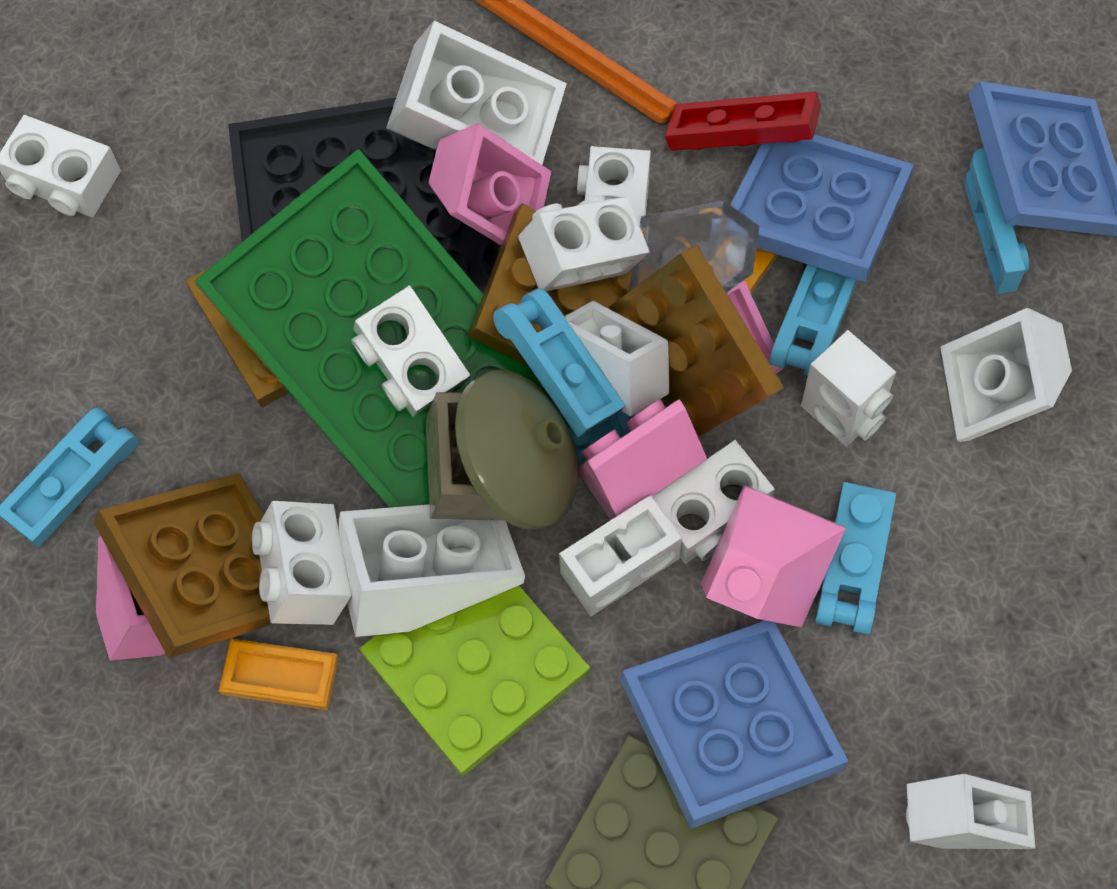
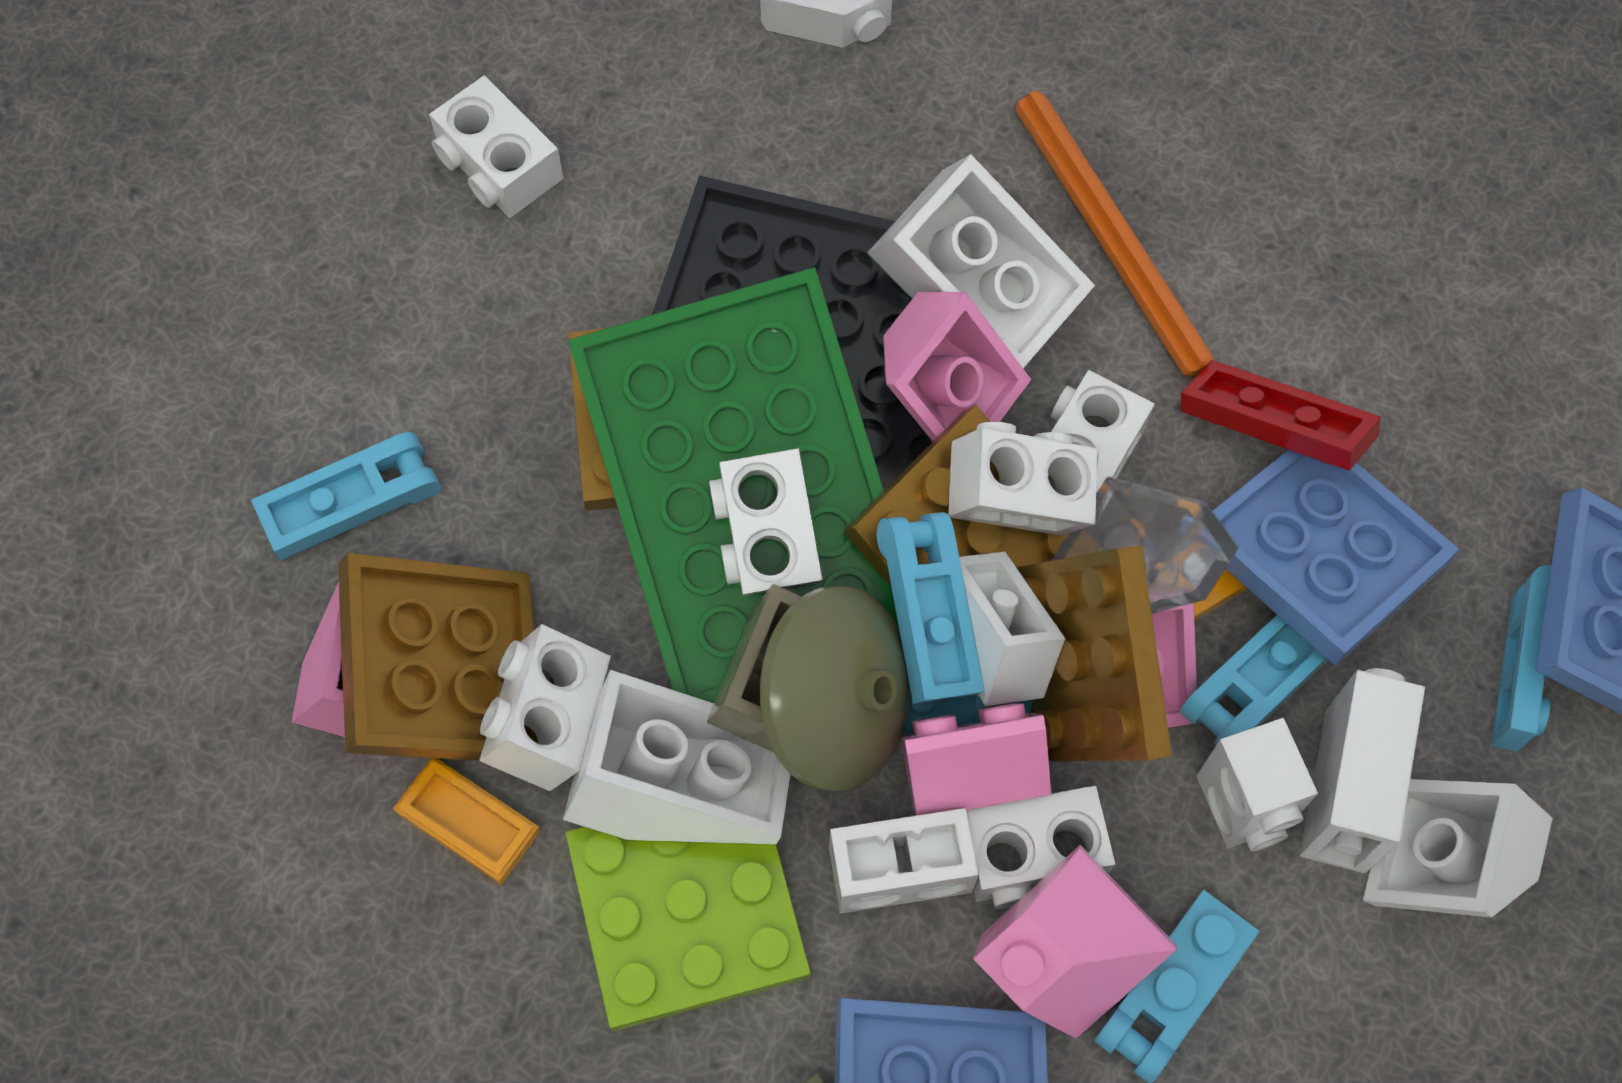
camera: 20 degrees right, 0 degrees up
(920, 345) = (1363, 770): none -> white brick

